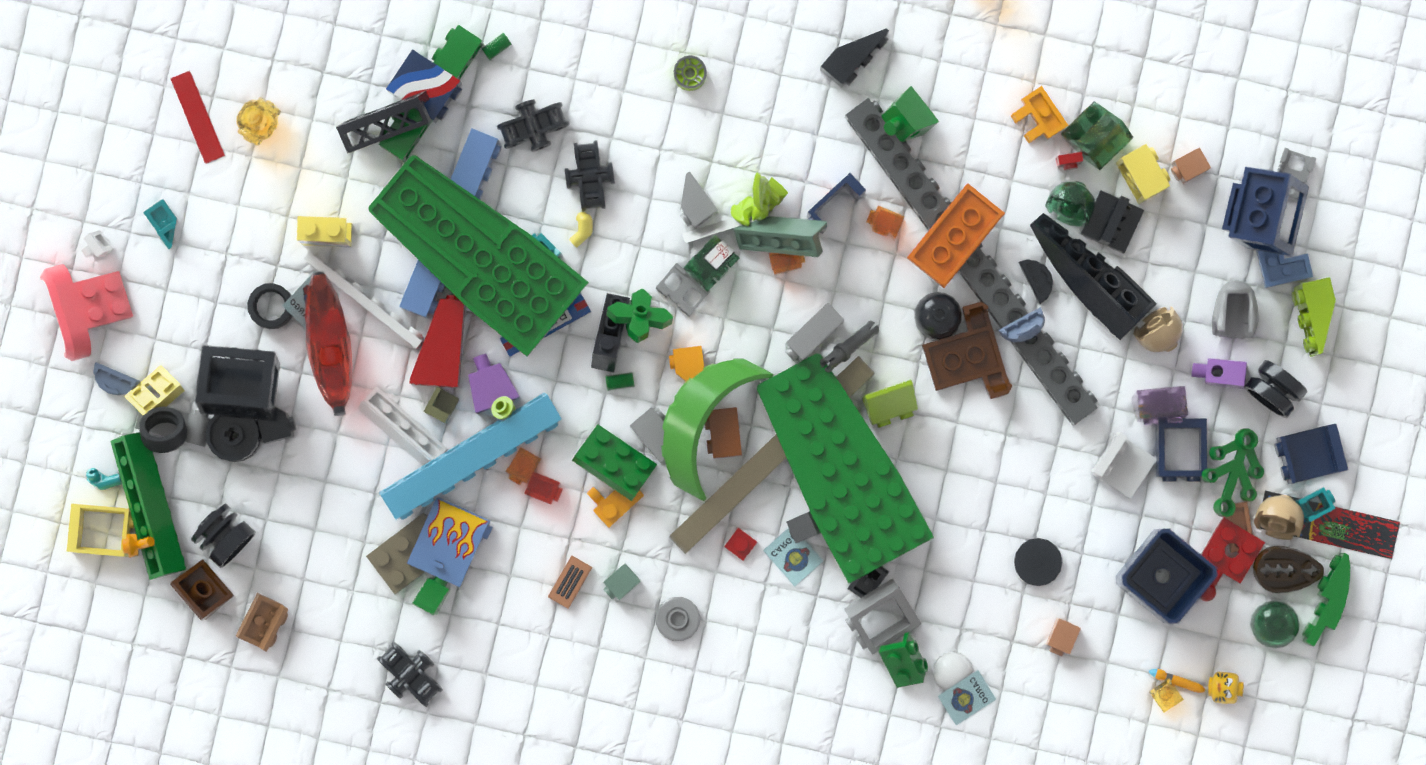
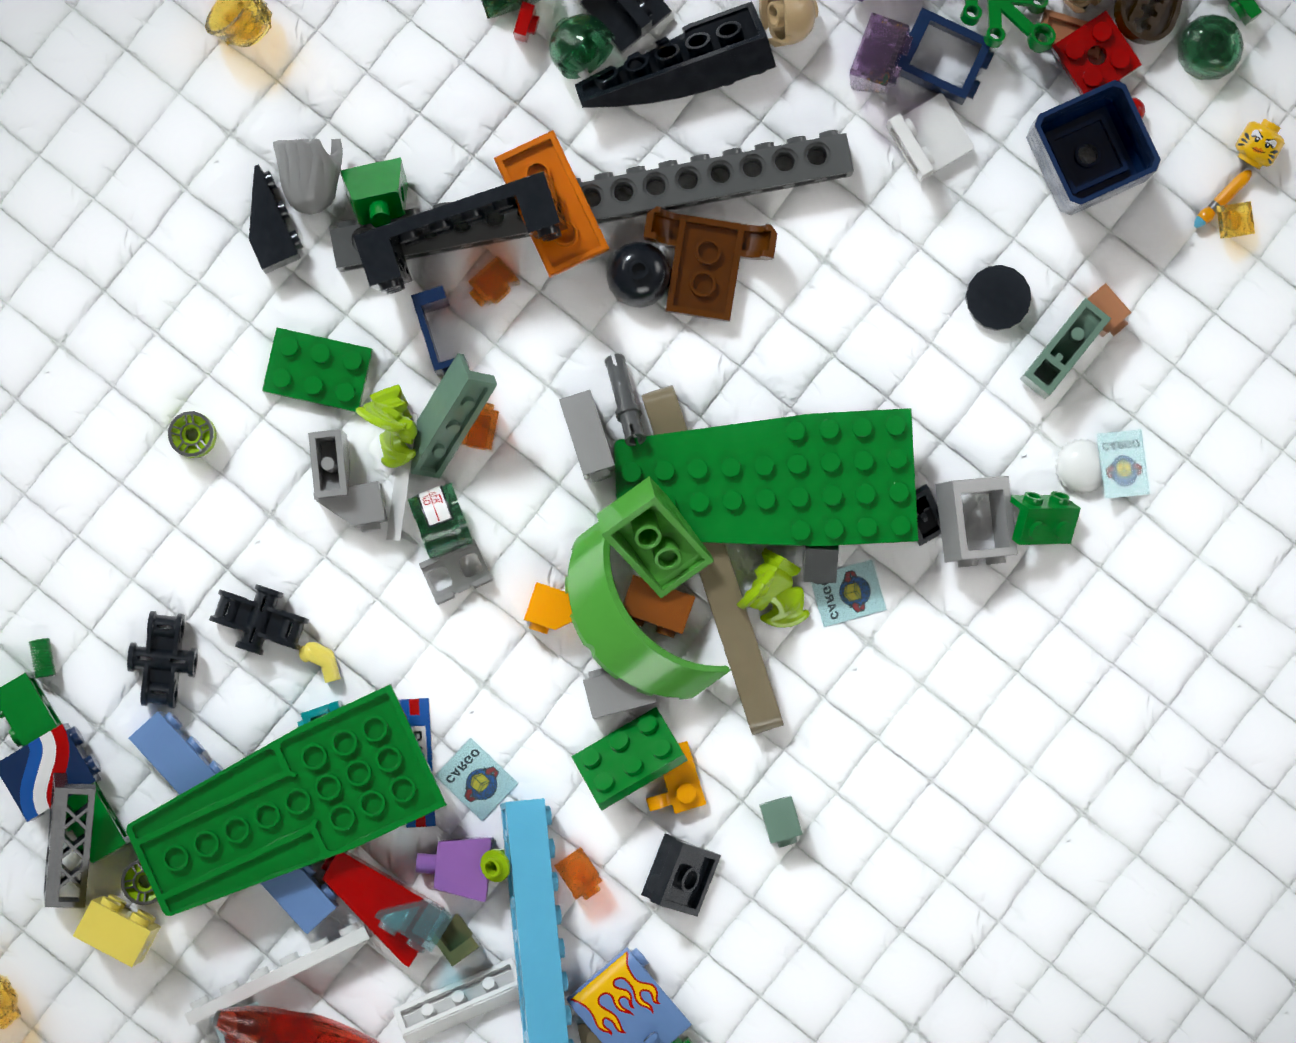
camera: 65 degrees left, 0 degrees up
(324, 231) = (168, 984): light yellow panel -> none
(343, 181) = (117, 929): none -> light yellow brick
(374, 179) = (133, 888): none -> wheel
(442, 376) = (417, 920): none -> clear light blue slope
(543, 488) = (619, 861): clear red brick -> none
(553, 369) = (476, 779): none -> clear light blue sticker
(553, 533) = (680, 875): none -> black bracket
(570, 582) = (749, 884): nougat tile -> none
(608, 337) = (466, 687): black slope -> none
(619, 381) = (531, 703): green piece -> none
(639, 315) = (462, 640): green plant -> none
(677, 618) = (858, 772): light grey wheel -> none
(714, 172) = (329, 463): none -> light grey slope
(740, 544) = (803, 651): red plate -> none
(767, 408) = (653, 537): none -> bright green slope
(772, 134) = (317, 370): none -> green plate
(774, 504) = (776, 587): none -> lime animal
(868, 141) = (382, 250): none -> black plate
(891, 403) = (719, 383): lime slope -> none
(899, 66) = (308, 173): none -> light grey hair
(1024, 621) = (1065, 349): none -> sand green slope
(1025, 327) = (705, 174): sand blue plate -> none
(1038, 278) = (652, 130): black plate -> none
(1044, 114) = (453, 25): light orange plate -> none

